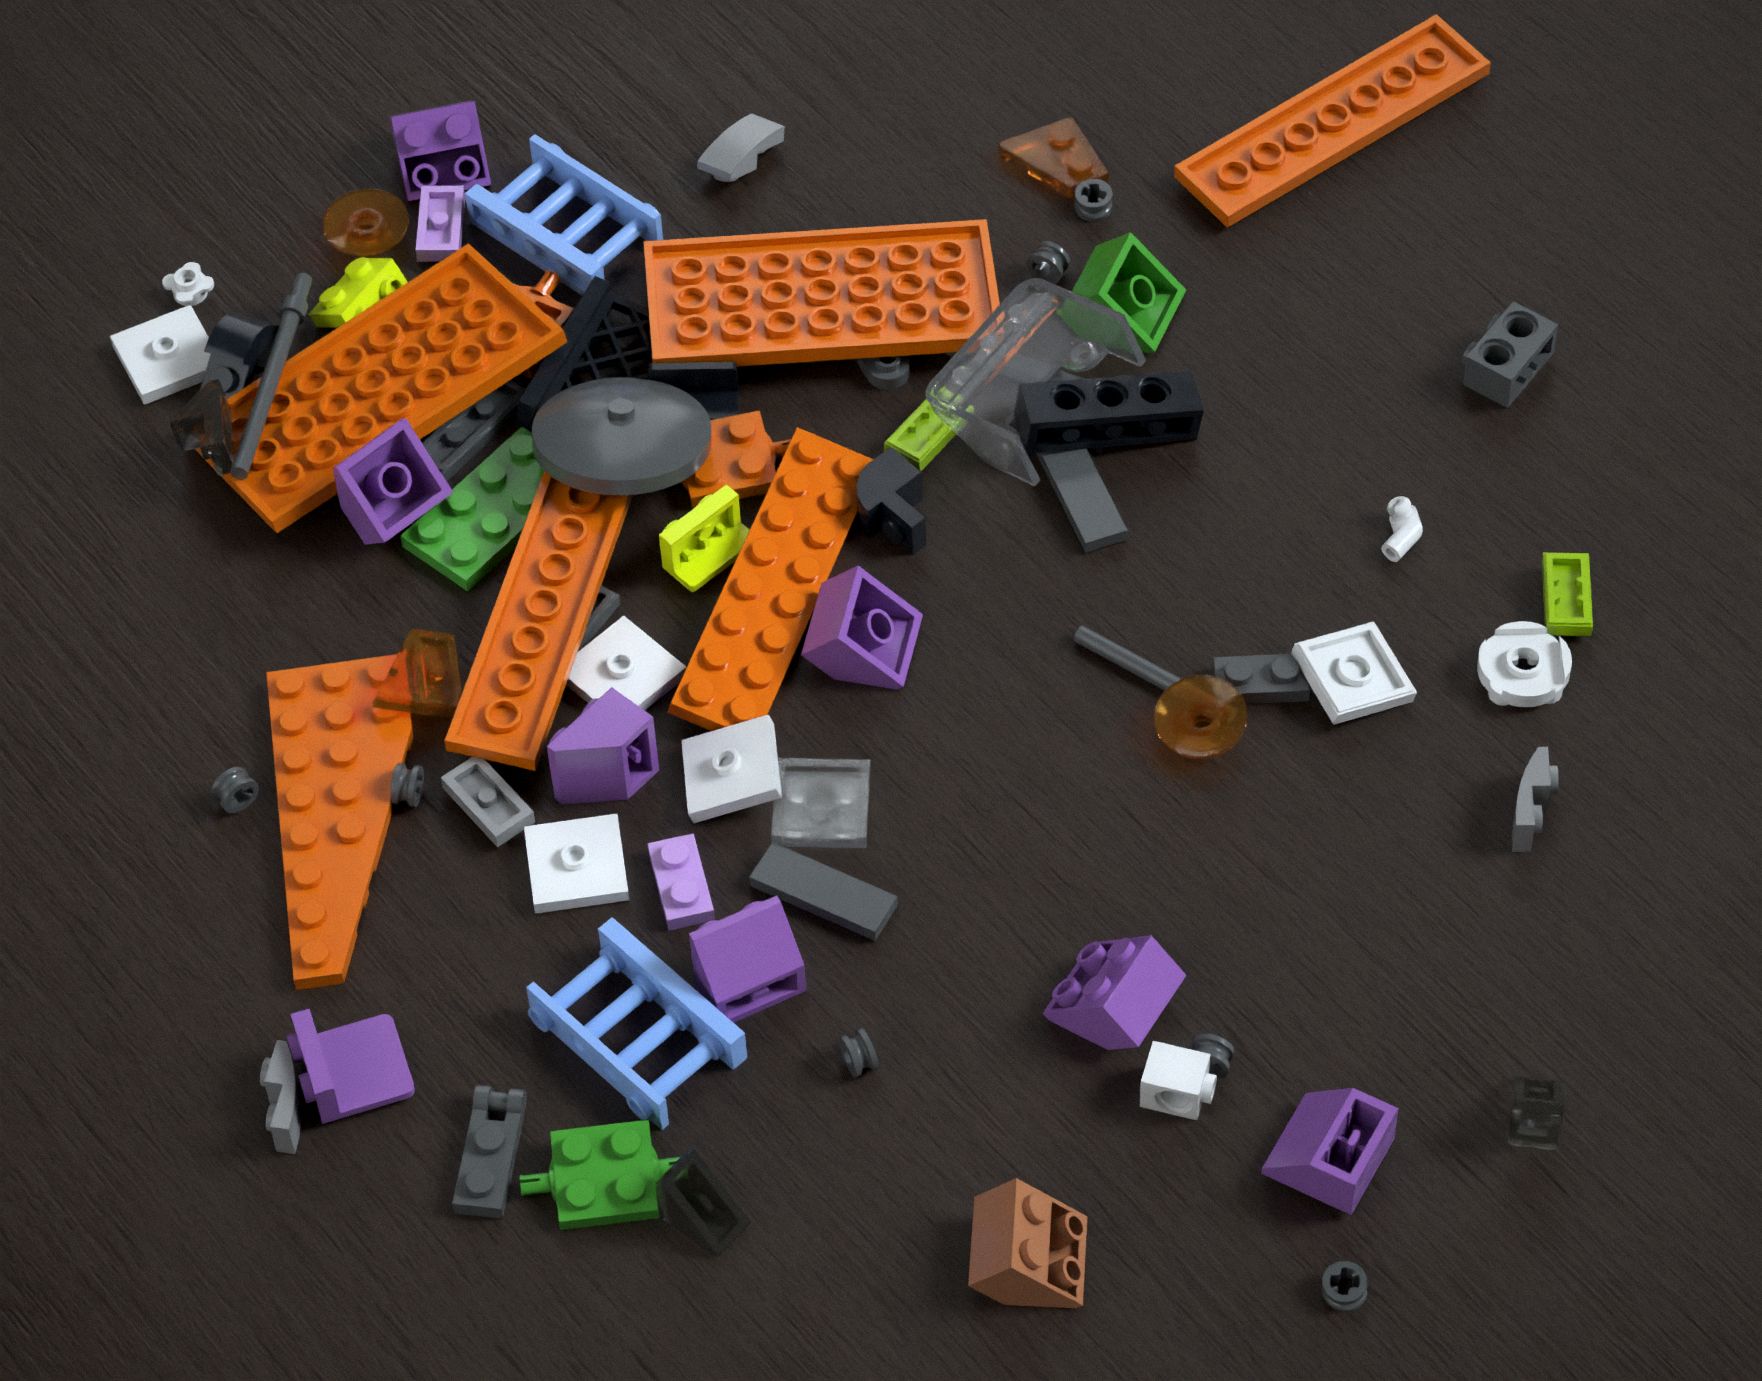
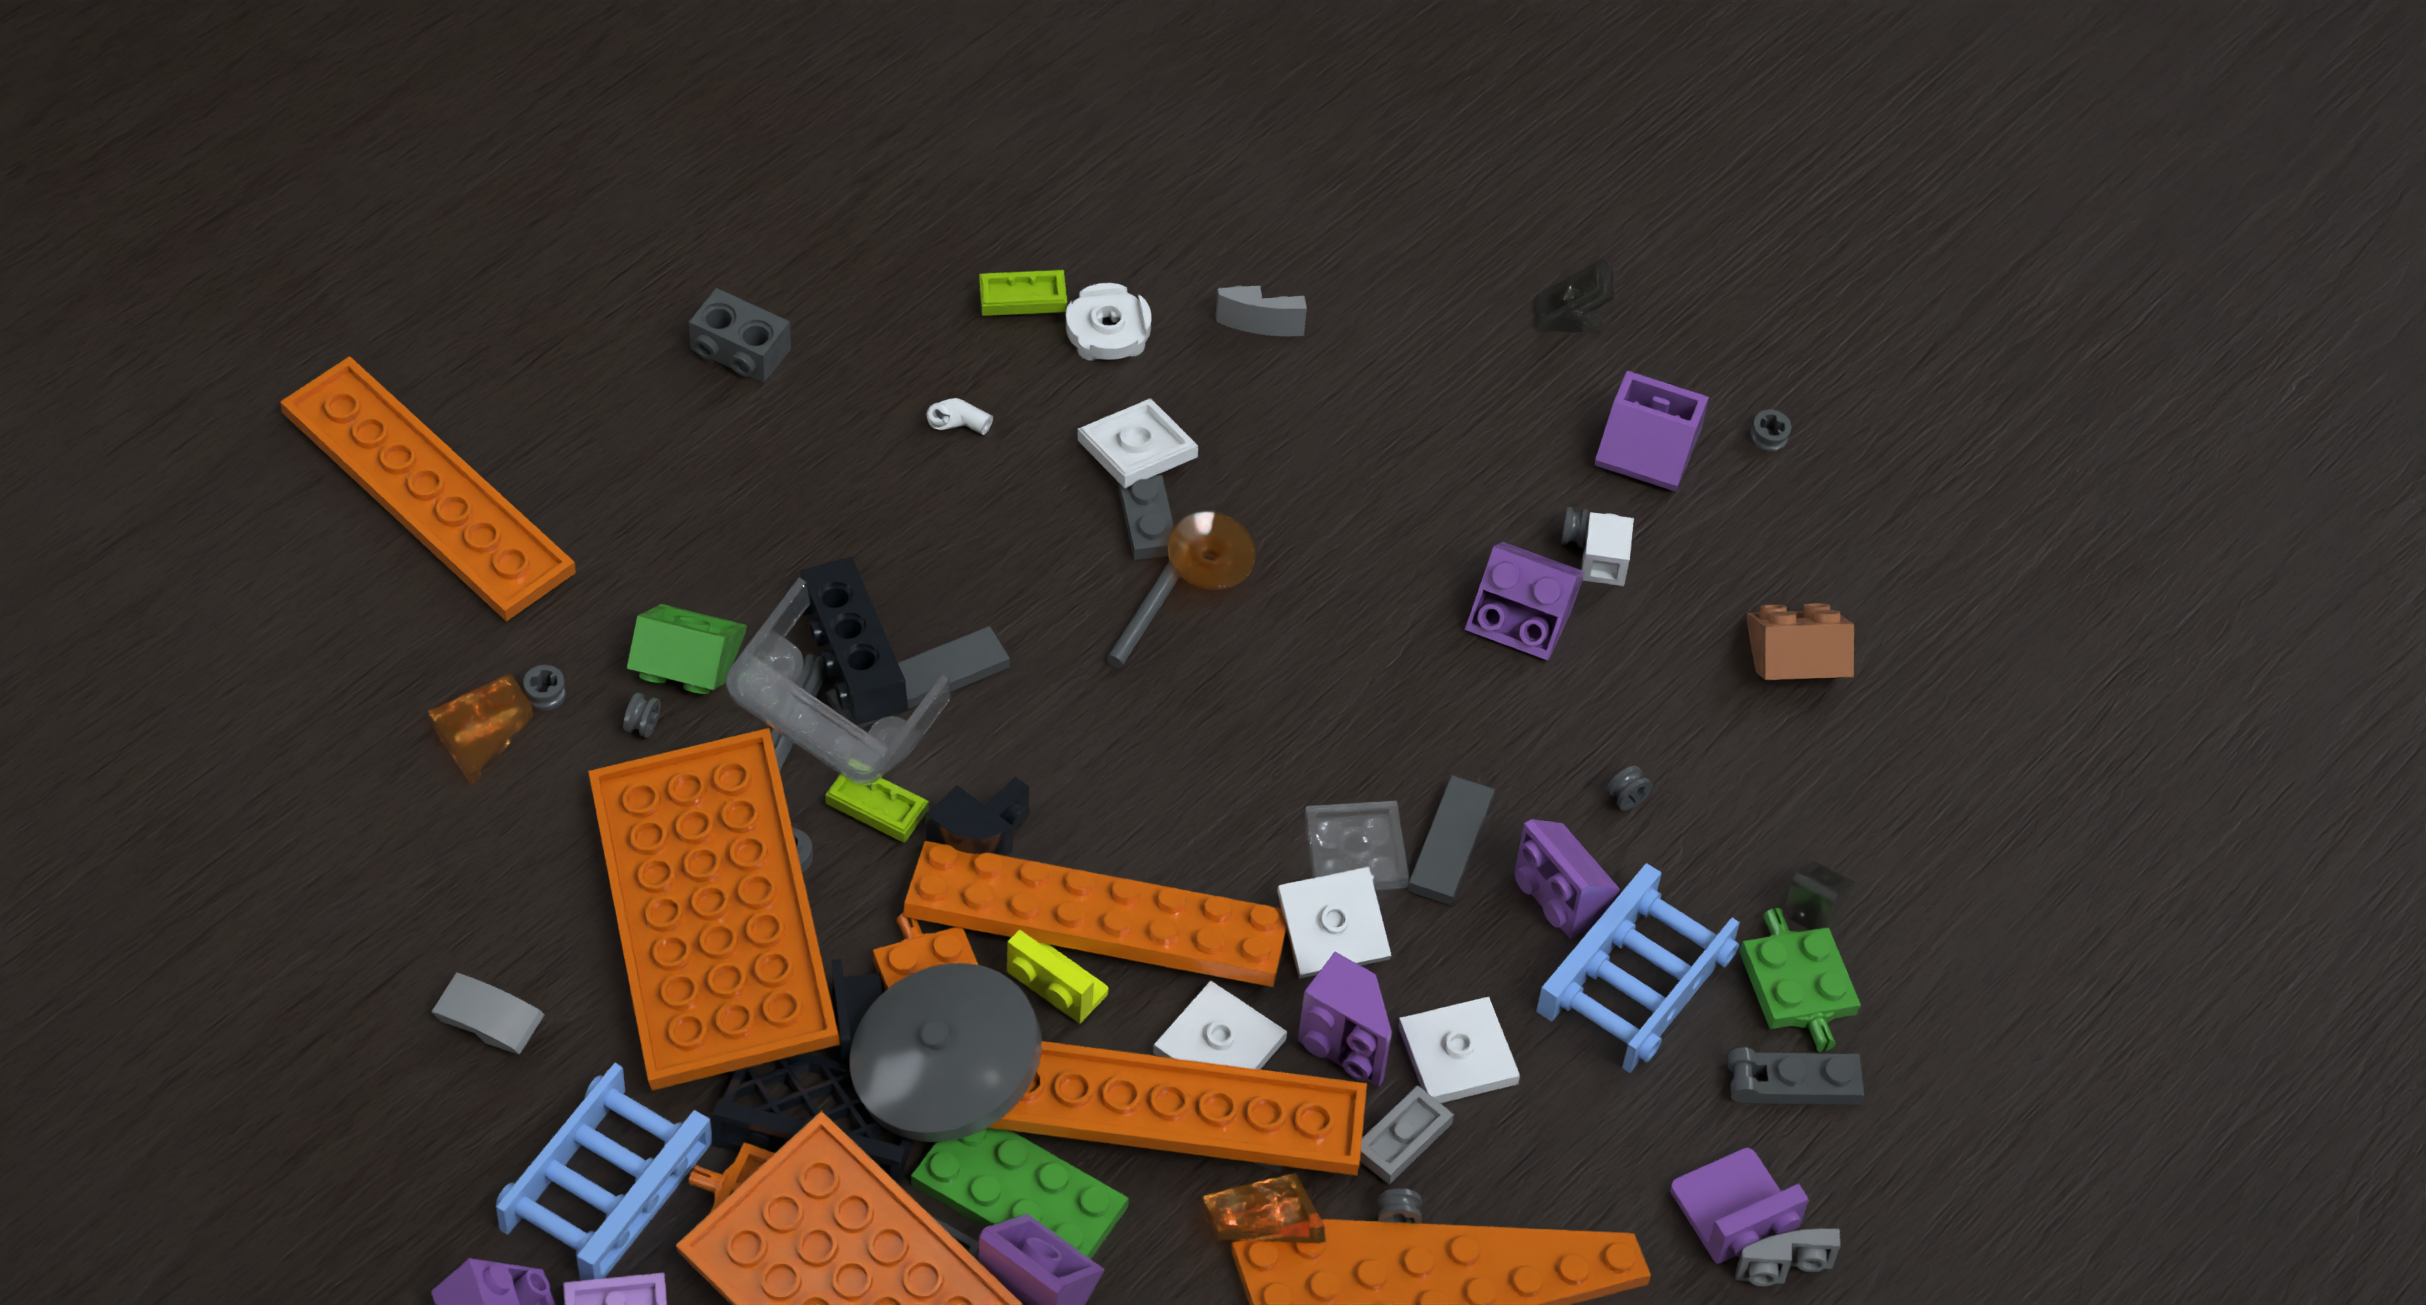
camera: 105 degrees left, 0 degrees up
(681, 882) = (1462, 959): lavender plate -> none
(862, 631) = (1148, 835): medium lavender slope -> none

